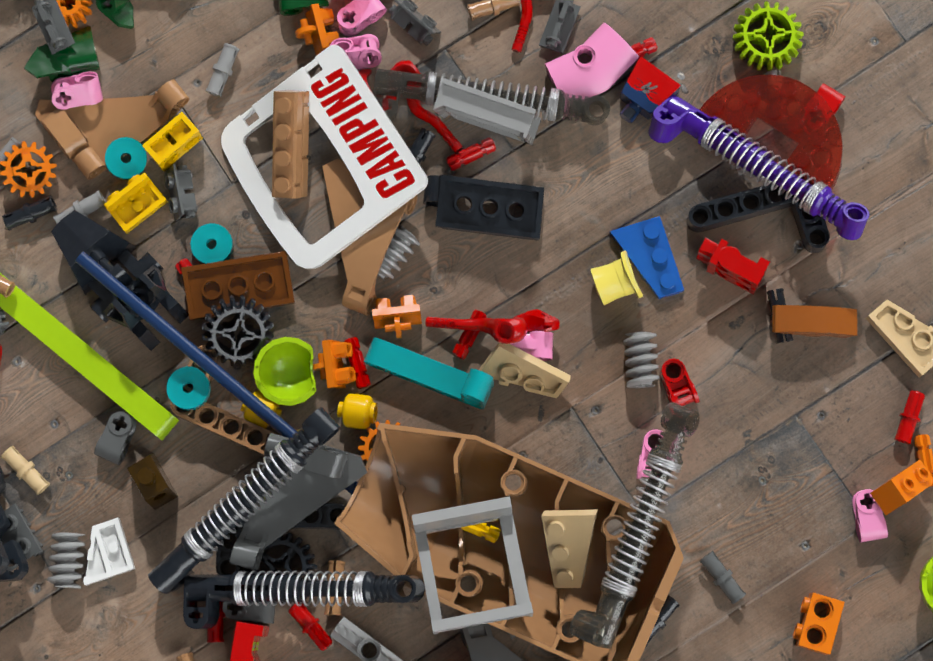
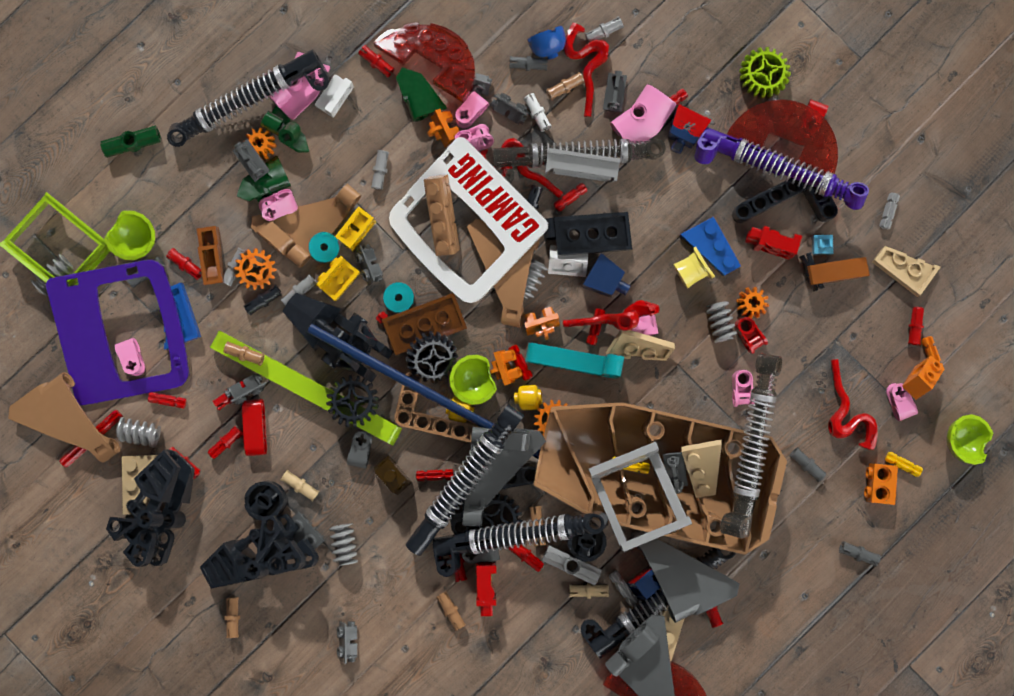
camera: 20 degrees left, 5 degrees up
(108, 552) = (371, 532): white wing -> none
(128, 370) = (344, 401): none -> black gear
(180, 379) = (414, 405): teal piece -> none
(206, 491) = (432, 475): none -> red axle
(395, 623) = (587, 546): none -> black brick
(448, 243) = (567, 264): none -> white panel
(449, 33) = (537, 112): none -> white pin
(495, 270) = (606, 278): none -> dark blue torso
(532, 546) = (676, 470): none -> dark grey hinge
(698, 339) = (757, 298): none -> orange gear
(771, 528) = (834, 424): none -> red animal
(802, 282) = (822, 244): none -> medium azure tile
(856, 603) = (903, 464): none -> yellow axle
(903, 254) = (889, 211): none -> light grey axle

